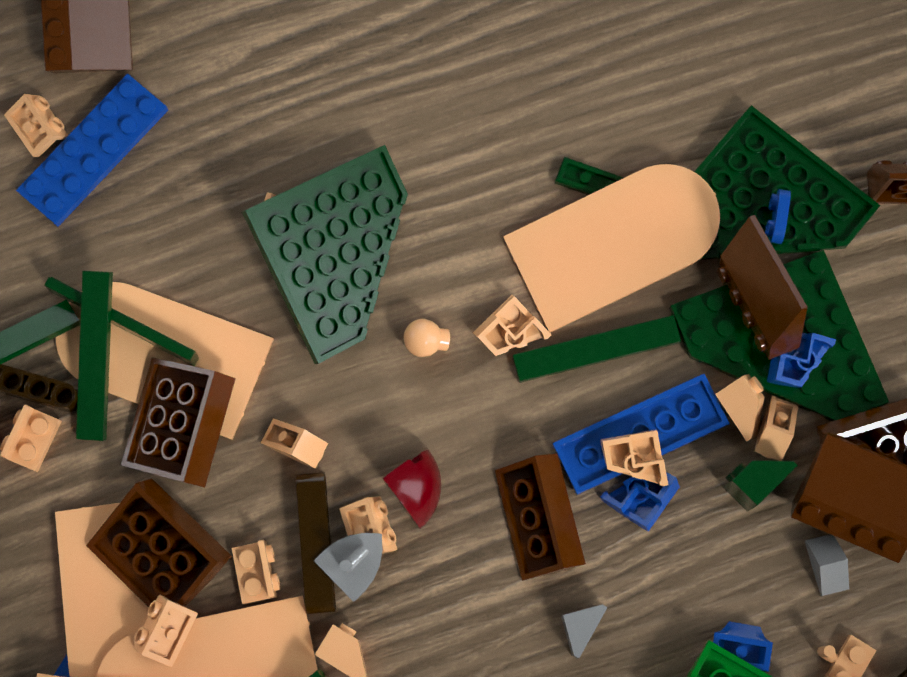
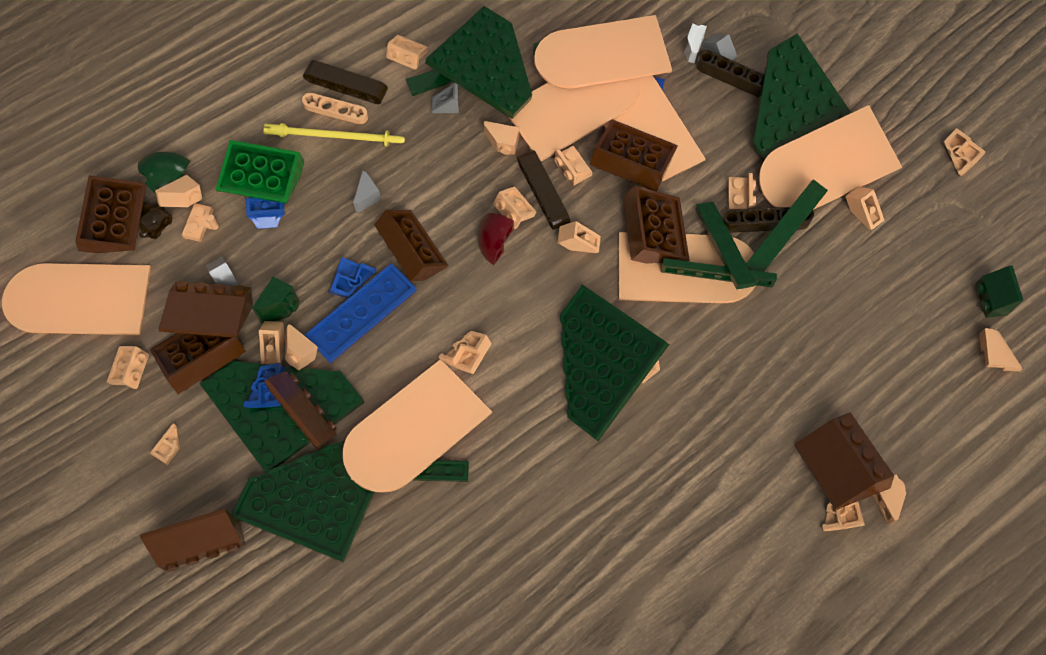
camera: 160 degrees right, 10 degrees down
(35, 123) = (838, 382): light nougat bracket -> none
(92, 150) = (792, 380): blue plate -> none
(164, 630) = (610, 110): light nougat bracket -> none
(352, 562) = (515, 180): light grey shield -> none
(425, 338) = (520, 325): light nougat piece -> none
(596, 348) = (405, 358): dark green tile -> none
(636, 456) = (360, 293): light nougat slope -> none
(777, 226) = (303, 485): blue plate -> none

